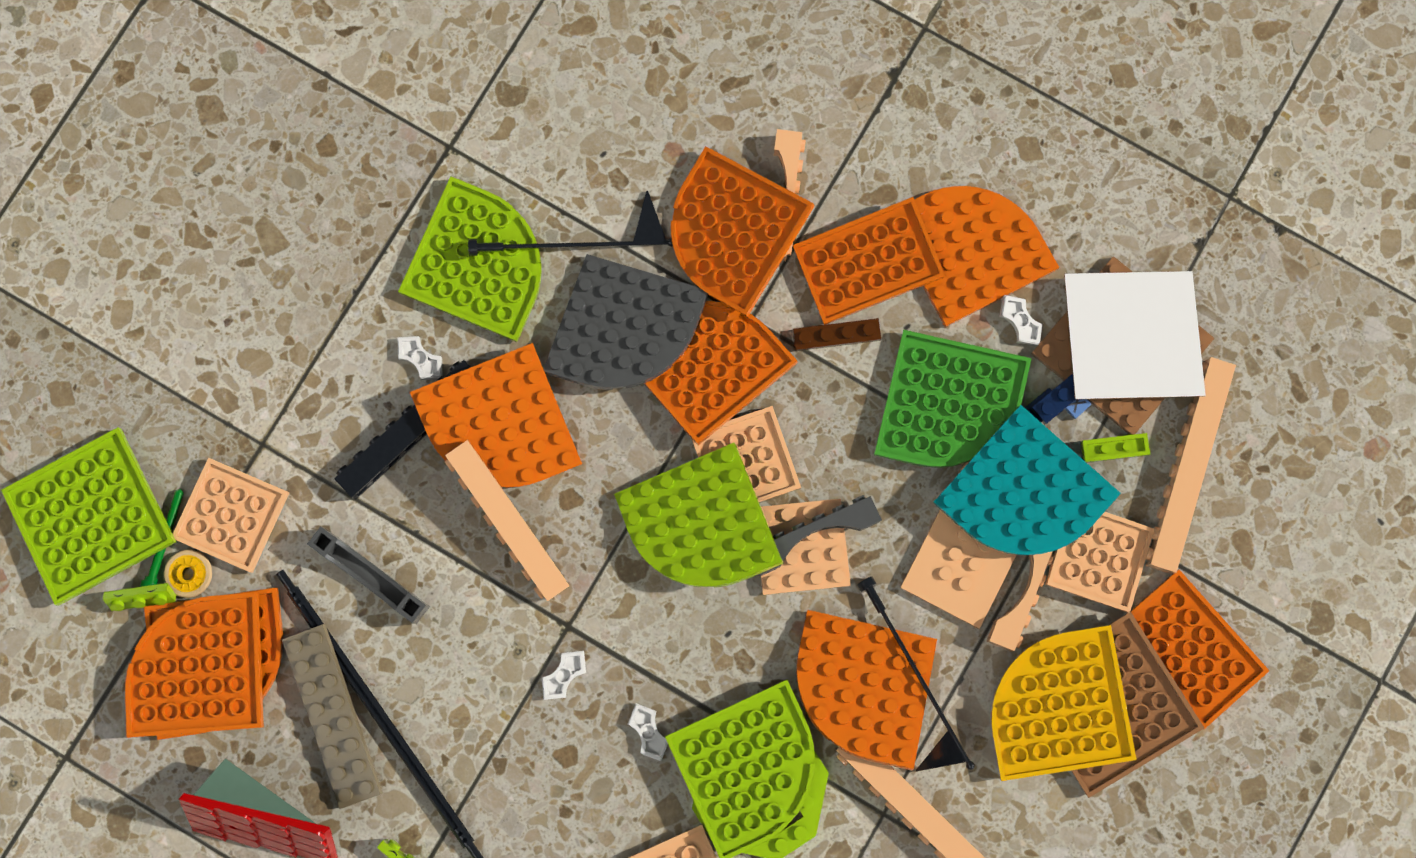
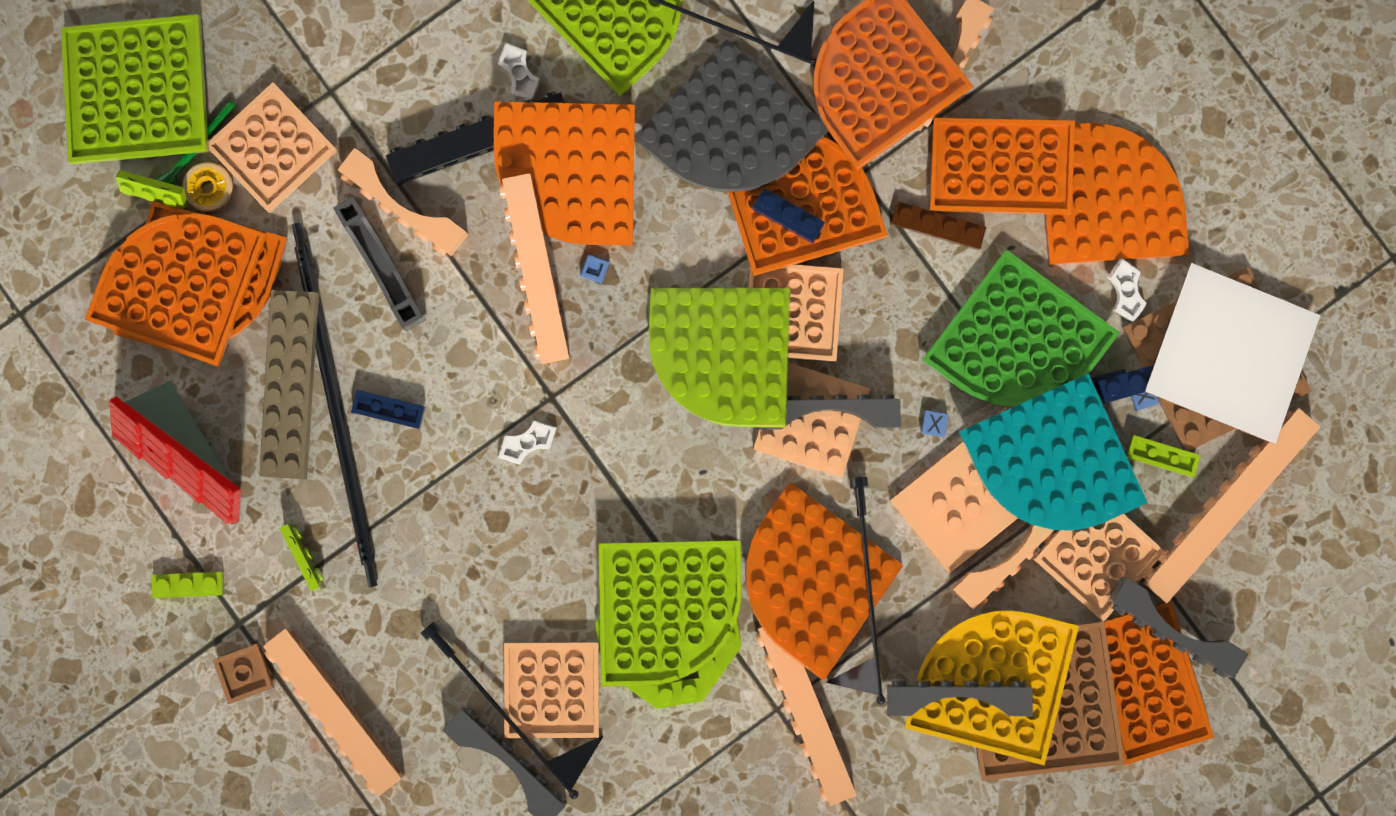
camera: 25 degrees right, 5 degrees up
(410, 523) = (365, 174): none -> light nougat arch
(429, 699) = (388, 409): none -> dark blue plate
(558, 498) = (595, 268): none -> medium blue tile
(644, 723) = (585, 521): white tile -> none
(705, 381) = (788, 215): none -> dark blue plate
(909, 505) = (934, 423): none -> medium blue tile
(1082, 714) = (1010, 699): none -> dark grey arch
(1150, 583) = (1135, 601): none -> dark grey arch

